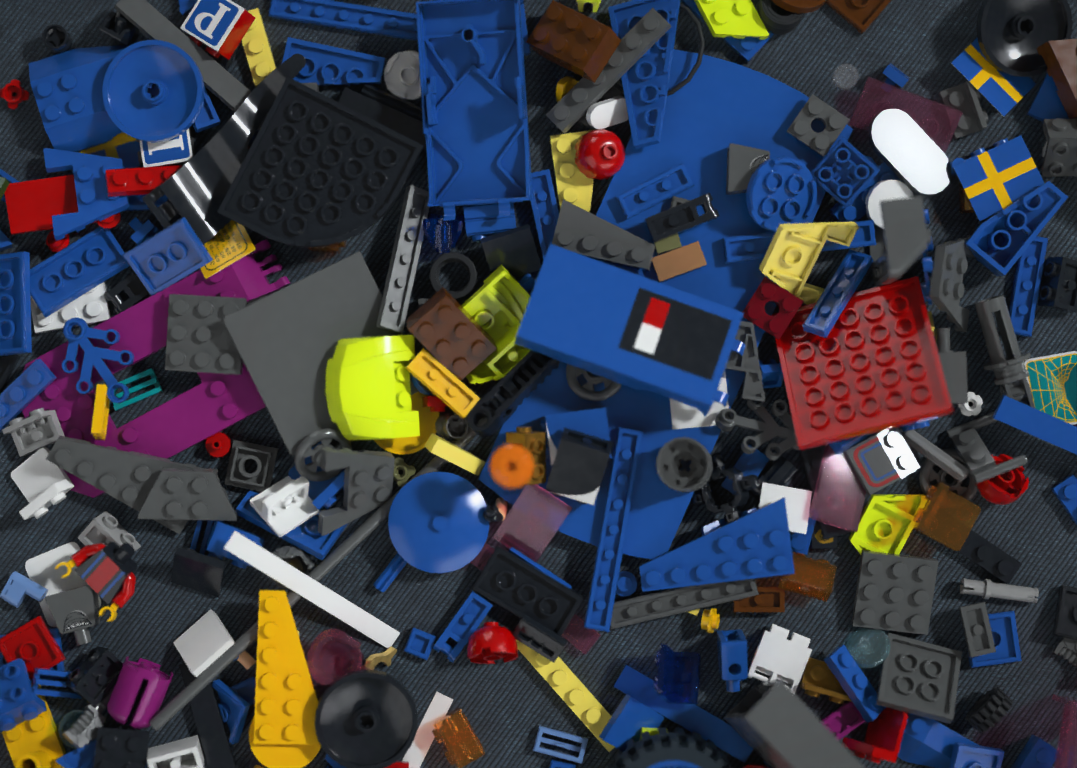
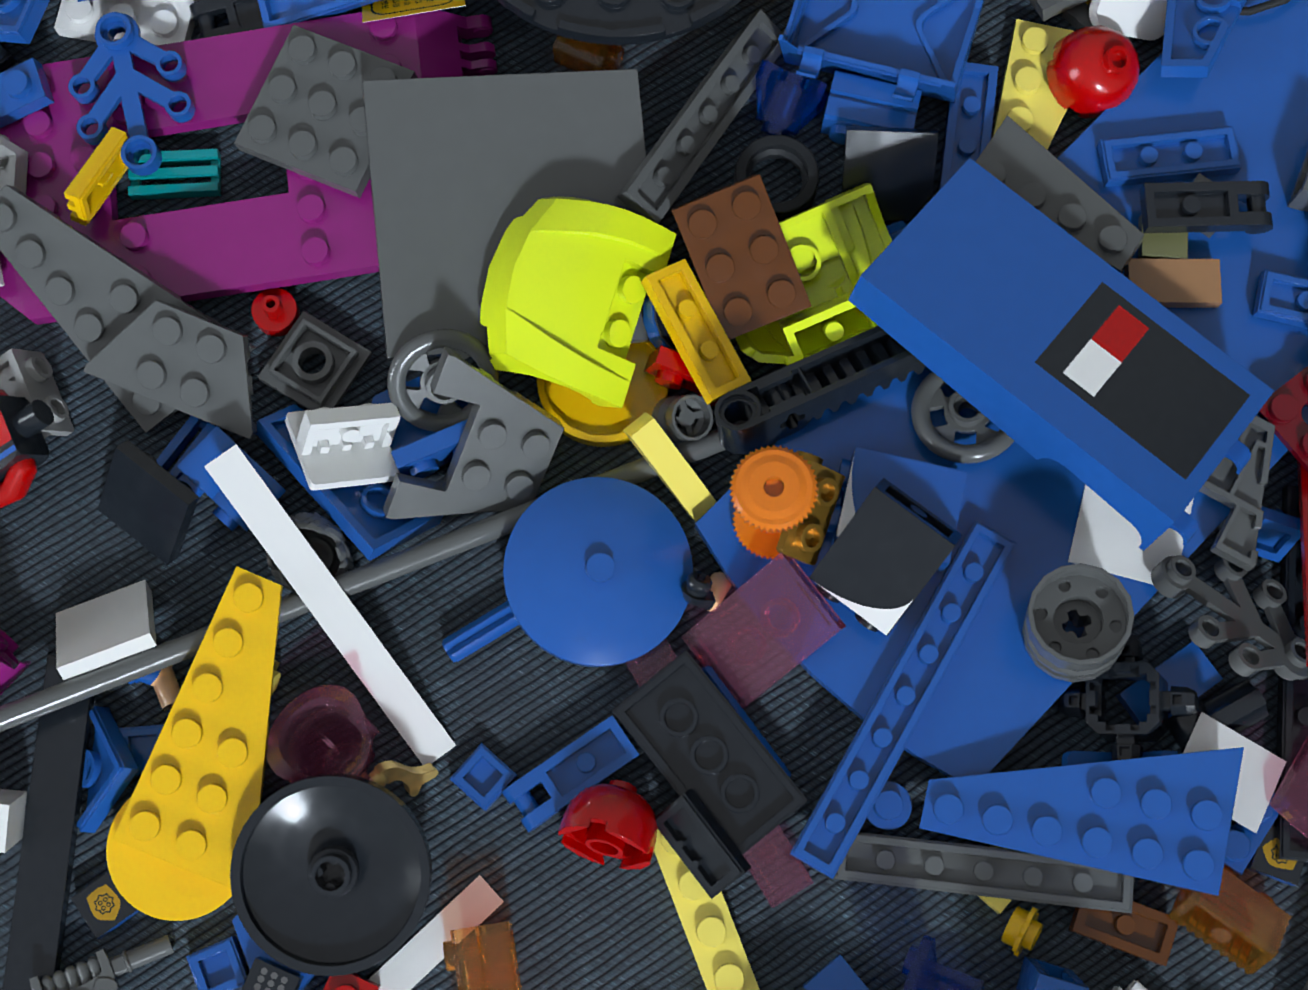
camera: 20 degrees right, 10 degrees down
(408, 471) = (567, 454): olive plate -> none

